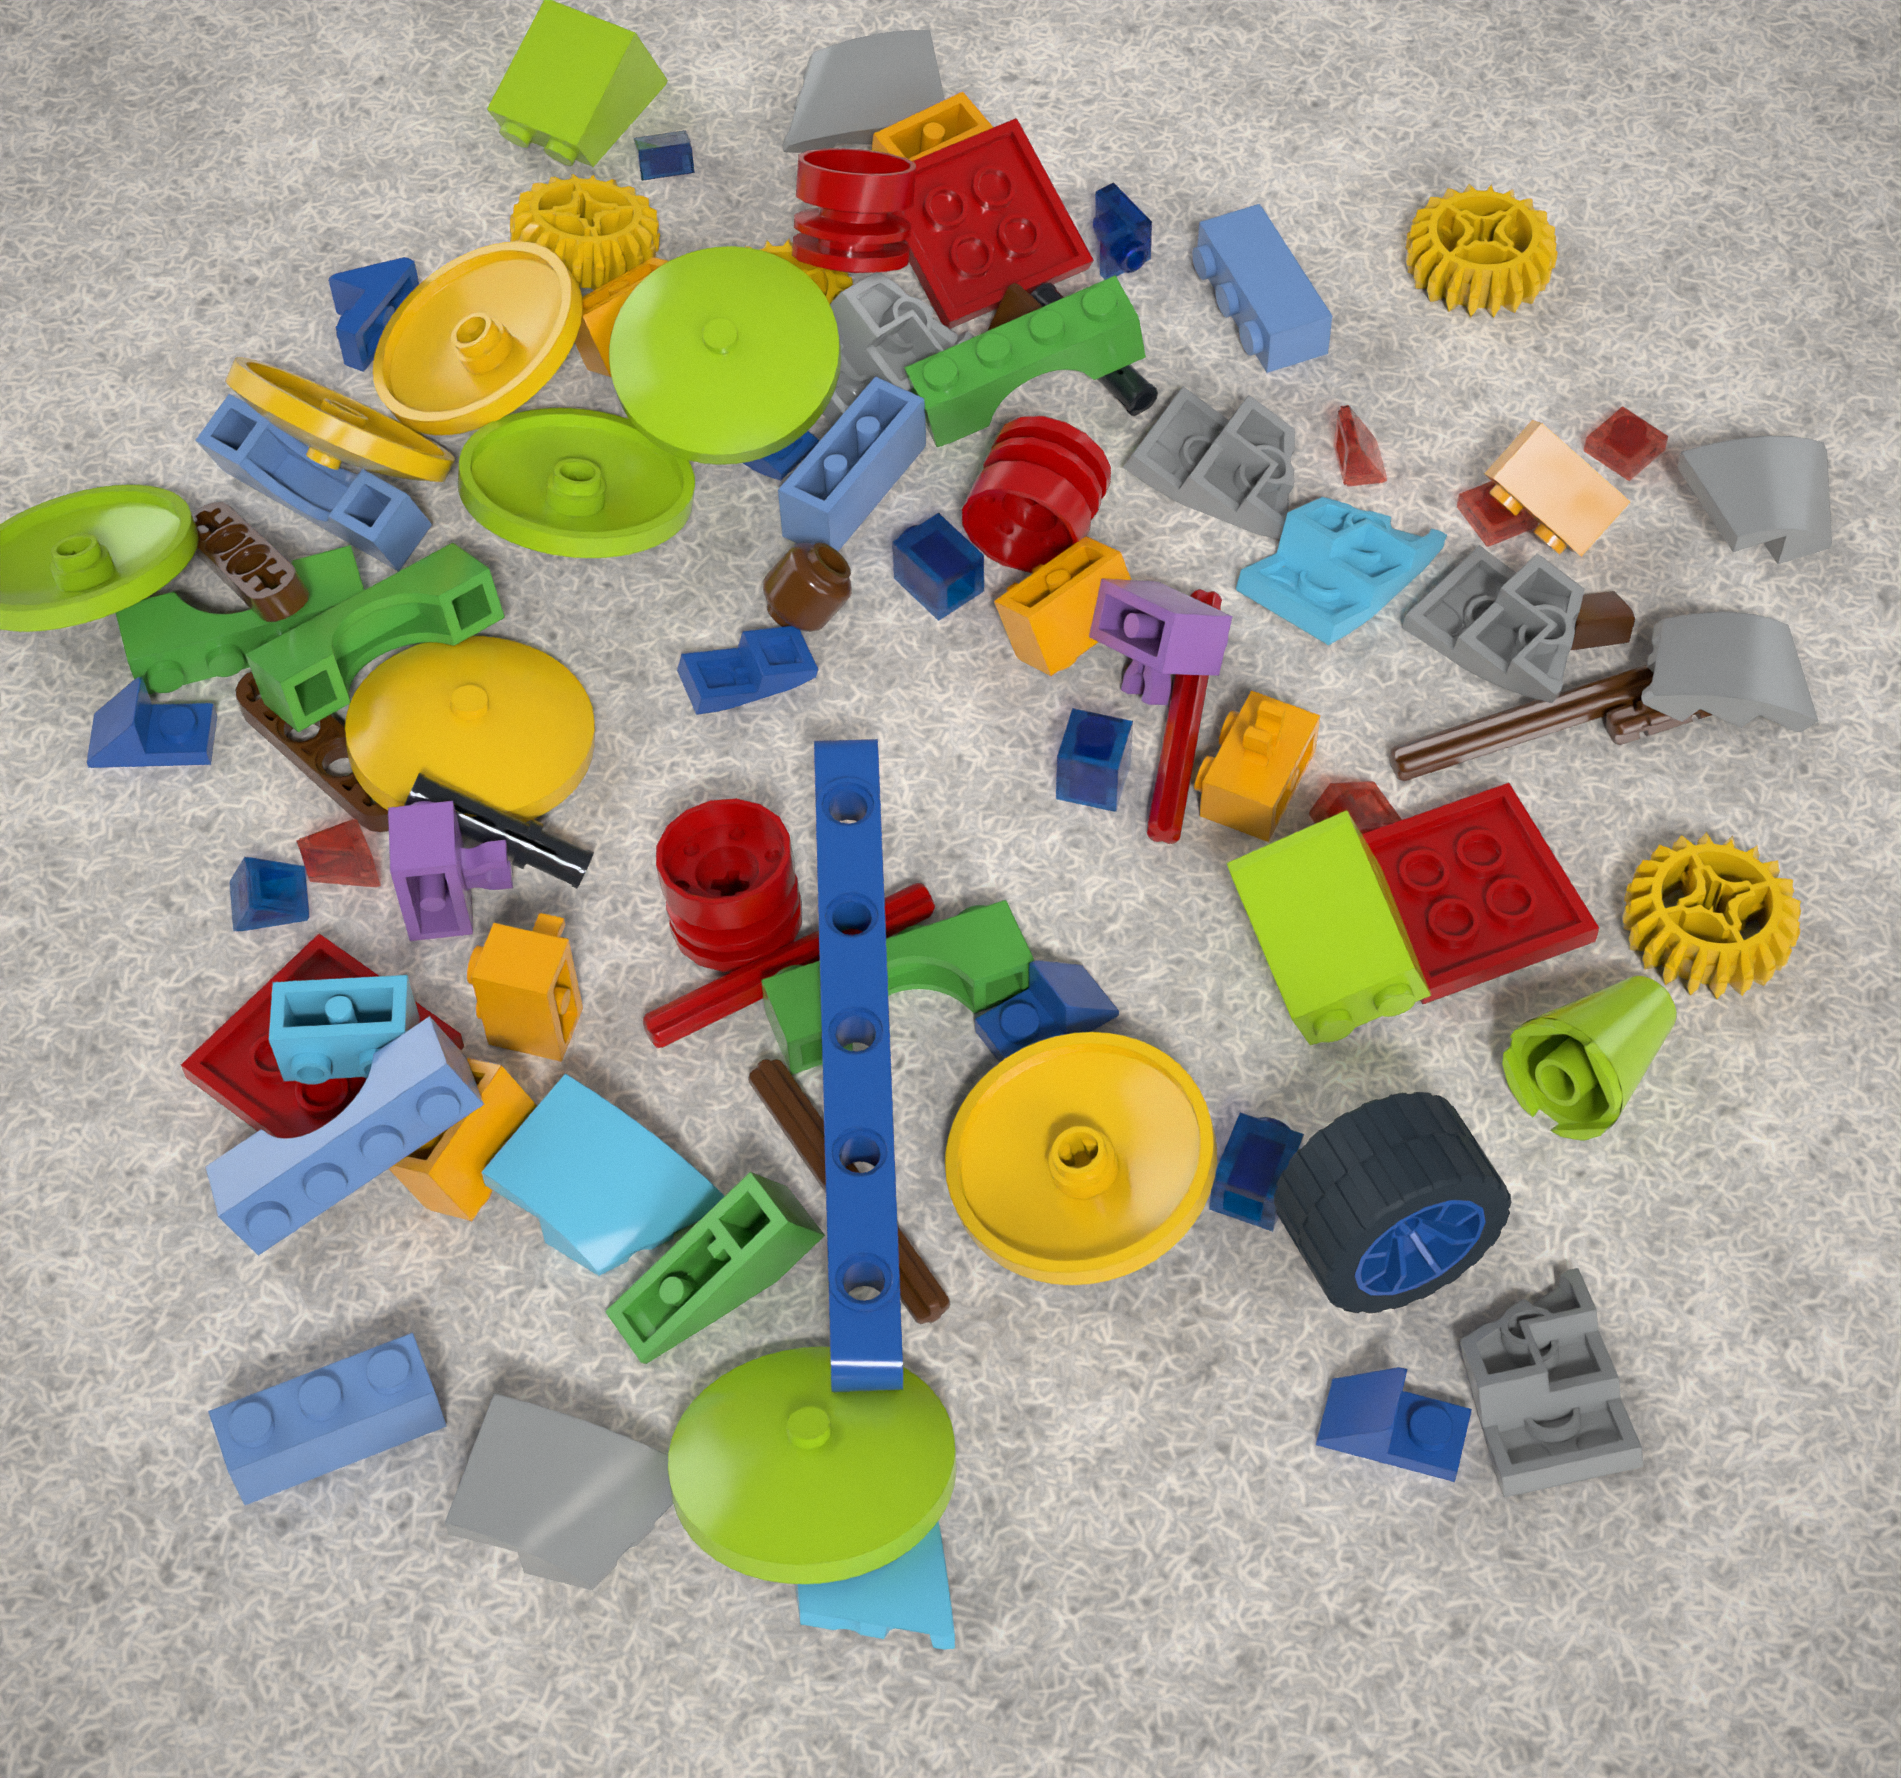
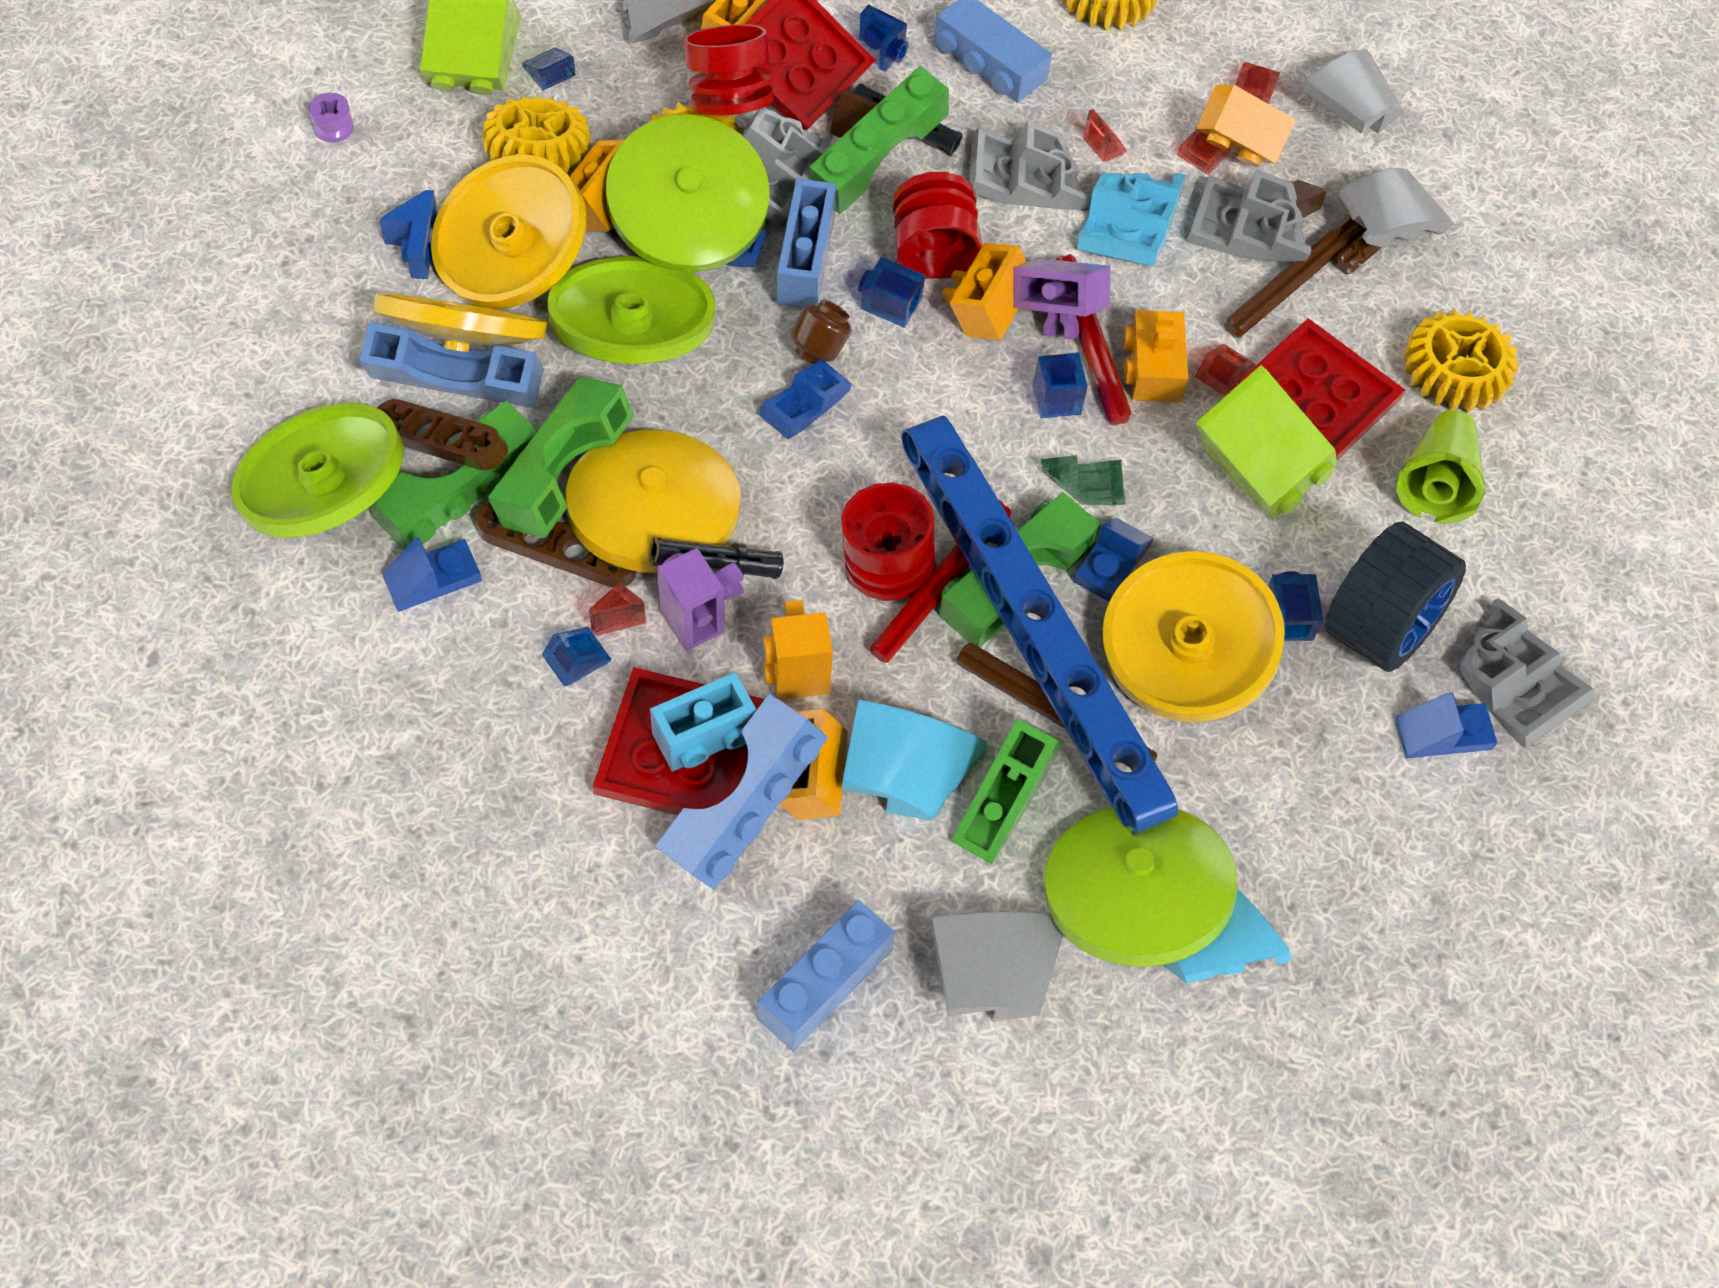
camera: 30 degrees left, 5 degrees up
(355, 139) = (331, 117): none -> medium lavender wheel
(1072, 906) = (1090, 482): none -> clear green slope

